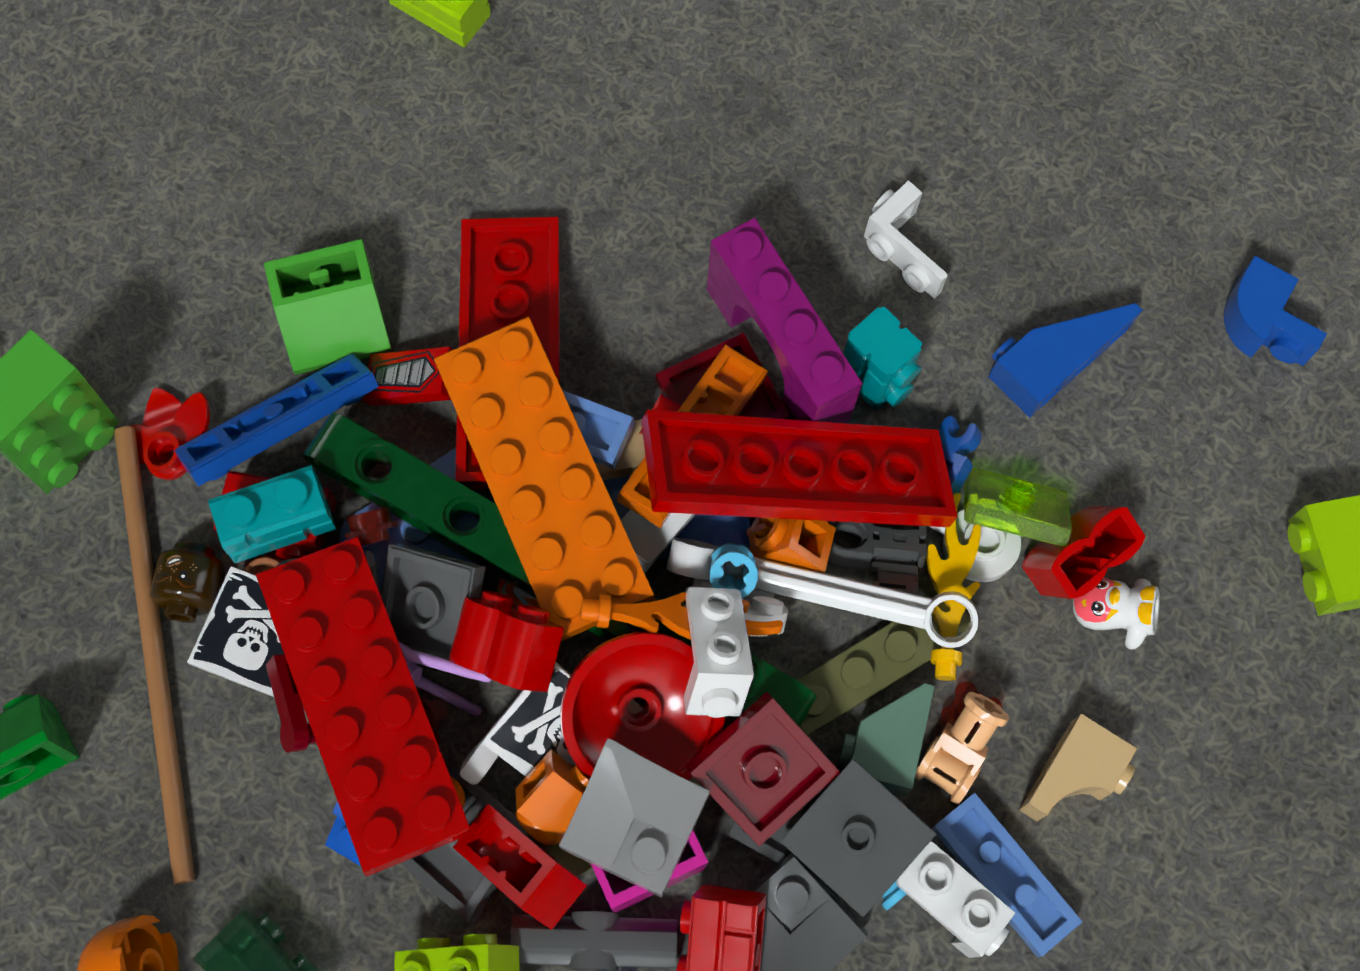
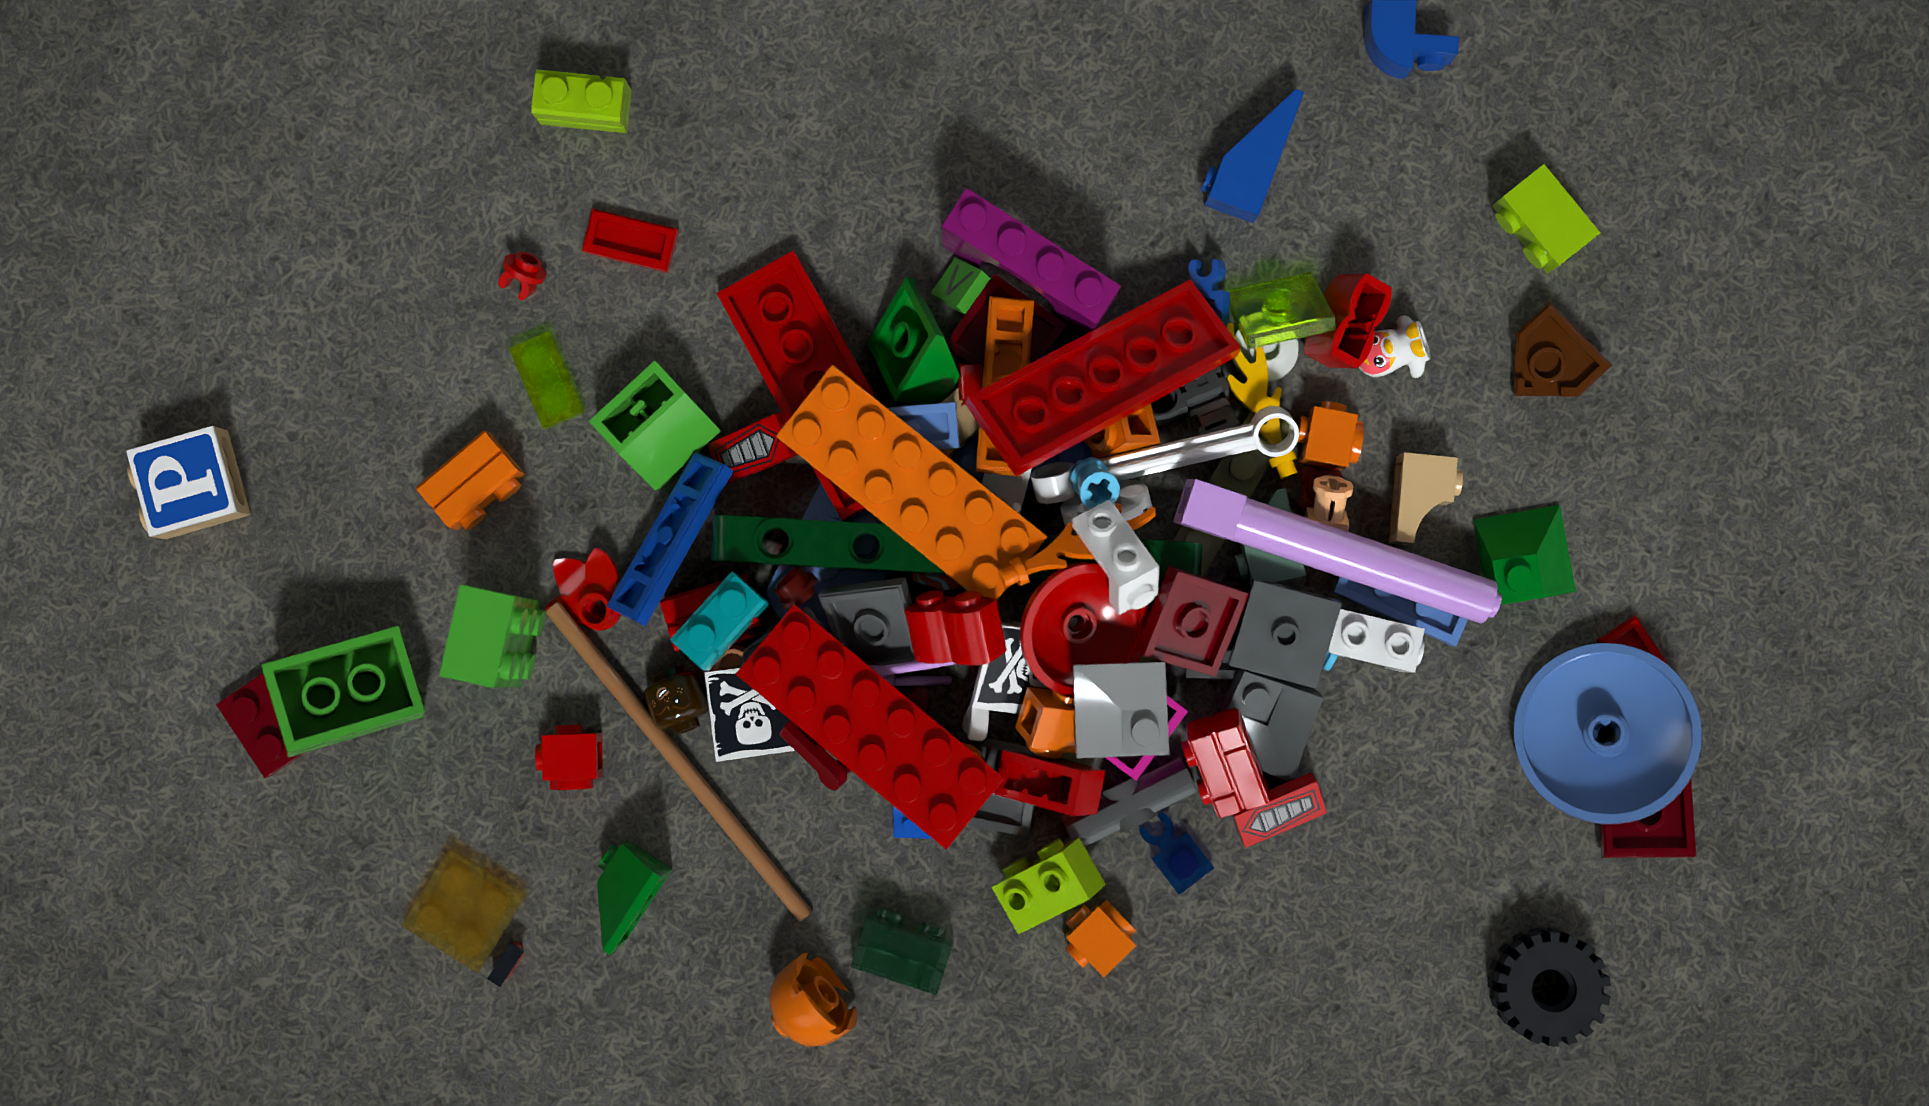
camera: 25 degrees left, 15 degrees up
(47, 584) = (570, 758): none -> red brick
(122, 273) = (471, 482): none -> orange brick
(253, 221) = (547, 380): none -> clear neon green plate
(294, 111) = (524, 268): none -> red plate
(409, 138) = (630, 240): none -> red tile
(621, 358) = (913, 350): none -> green slope
(703, 329) = (960, 285): none -> bright green tile
(858, 675) = (1336, 551): none -> lavender brick
(883, 358) = (1119, 244): teal brick -> none
(887, 242) = (1070, 135): white bracket -> none
(1008, 662) = (1330, 436): none -> orange brick
(1163, 900) = (1525, 554): none -> green slope
(1290, 702) = (1554, 357): none -> reddish brown plate

